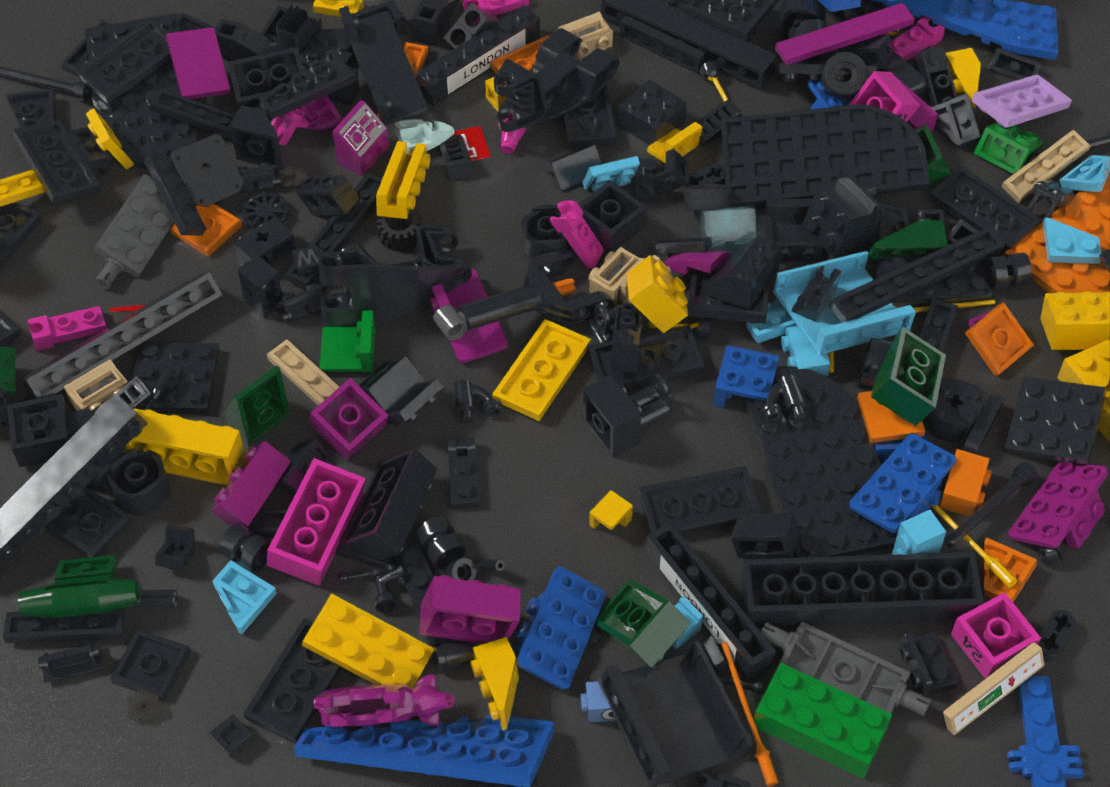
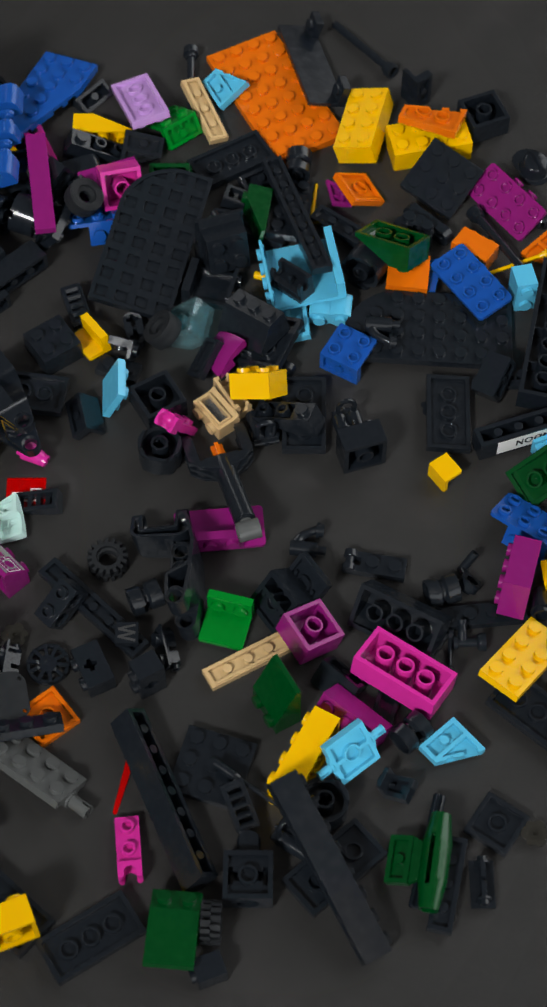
camera: 75 degrees left, 5 degrees up
(95, 387) = (214, 828): tan window -> none
(193, 480) = (350, 751): none -> medium azure plate
(402, 181) = (64, 542): yellow brick -> none
(541, 369) = (292, 487): yellow plate -> none
(711, 72) = (20, 294): black hinge -> none
(1056, 195) = (234, 115): black piece -> none
(1070, 244) = (287, 120): medium azure wing -> none

